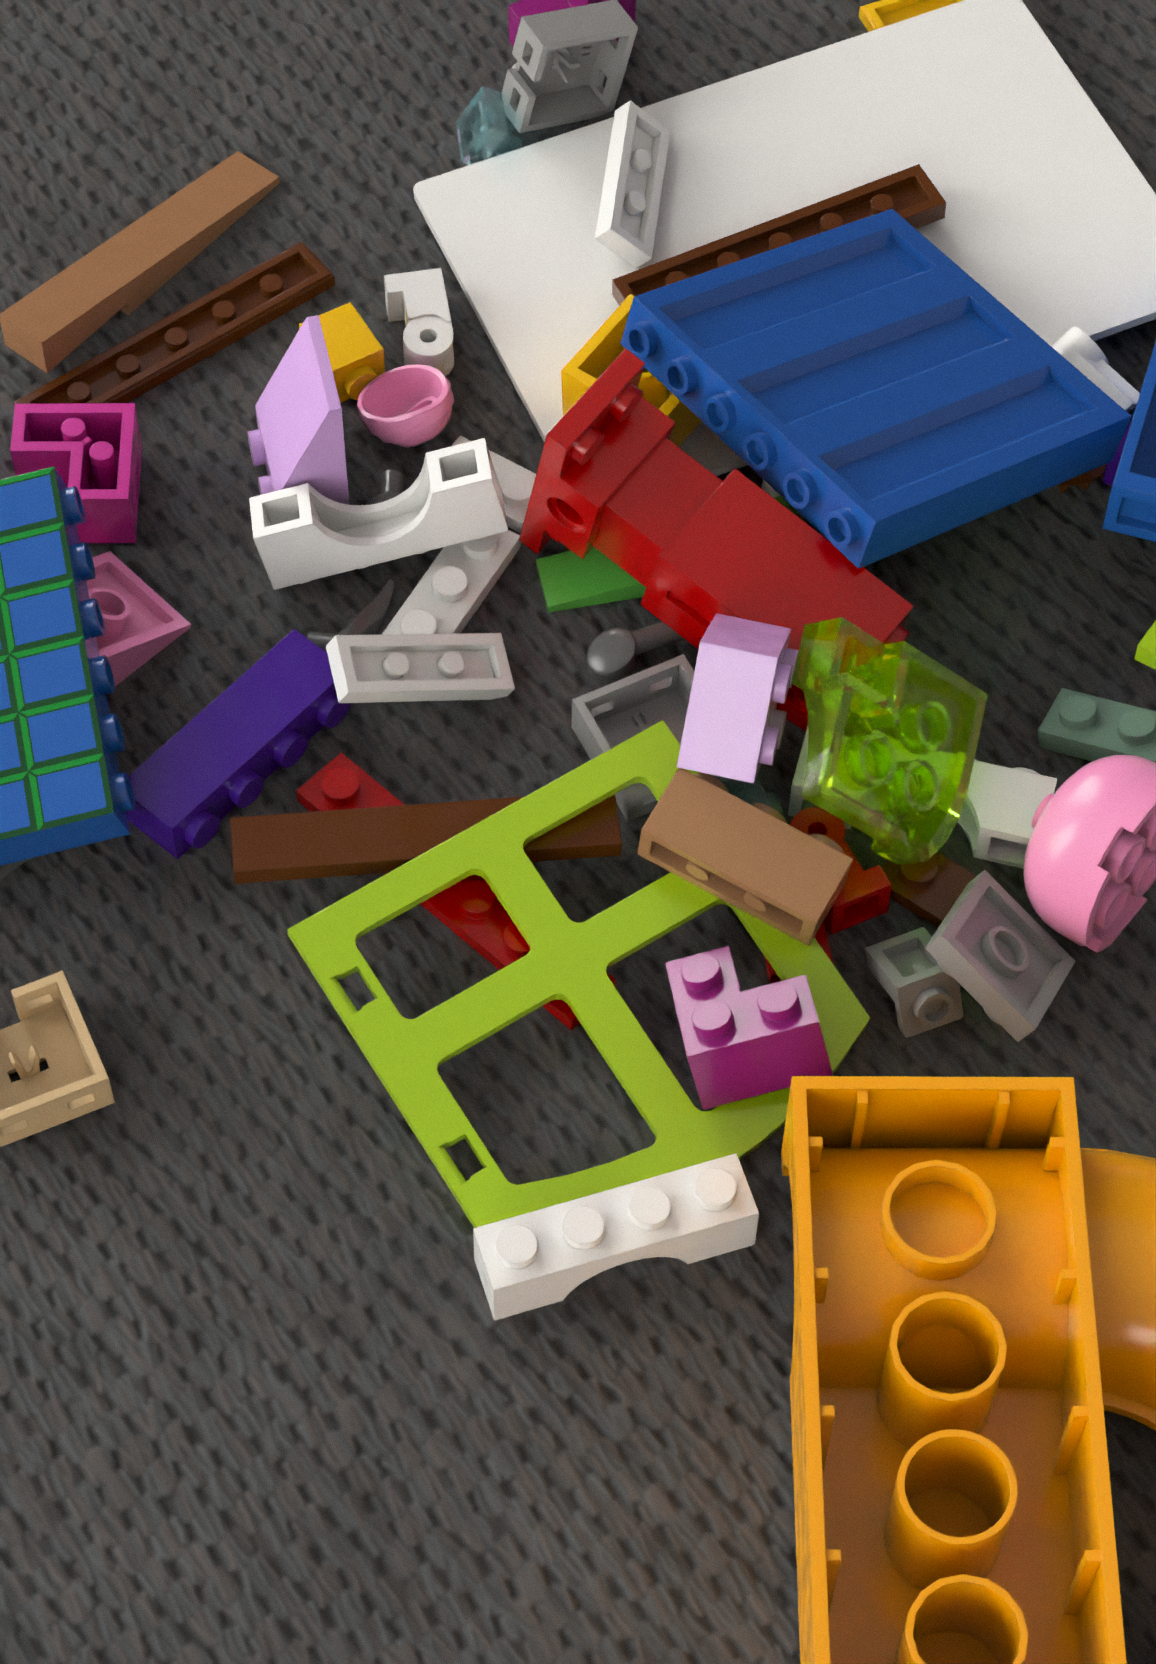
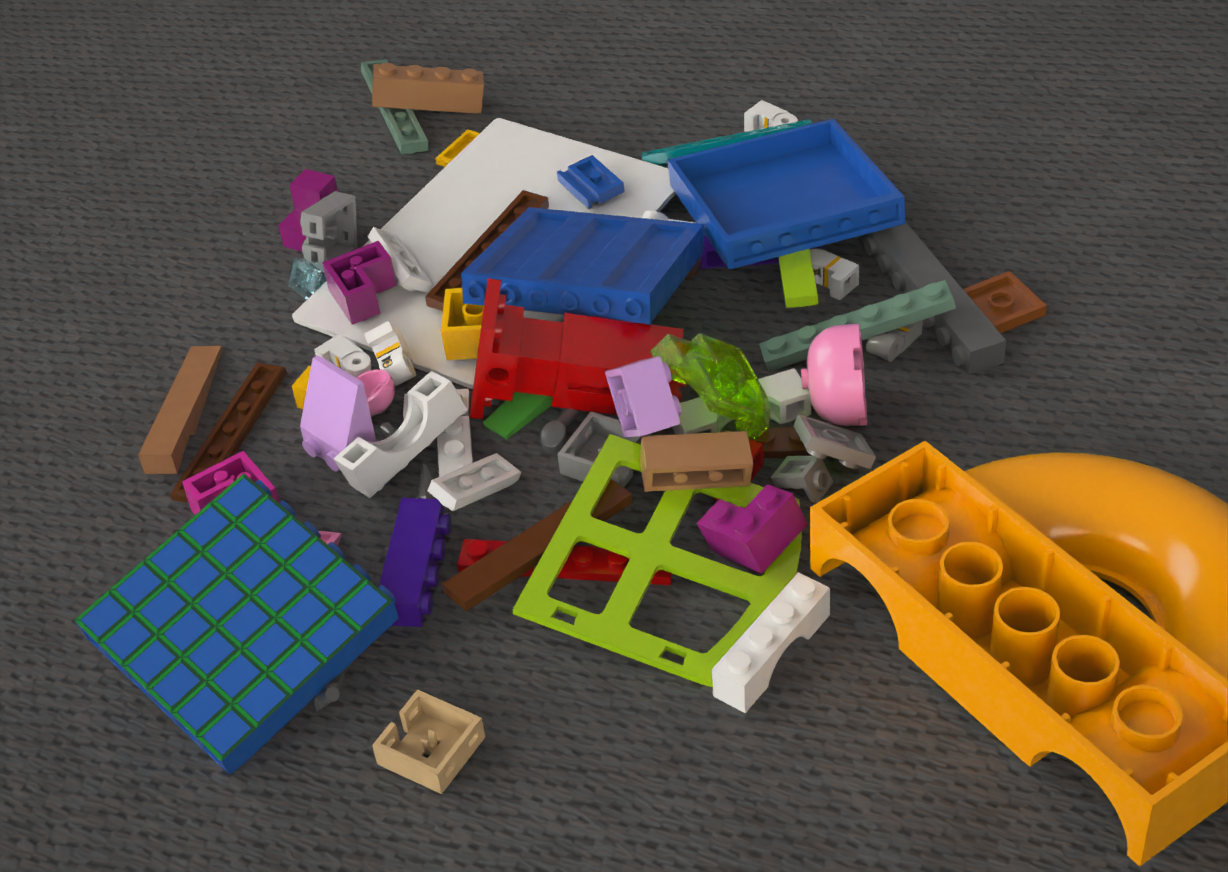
camera: 30 degrees left, 15 degrees down
(489, 354) = (391, 352): none -> white leg
(536, 181) = (357, 279): none -> magenta brick
(1043, 210) = (590, 181): none -> blue plate

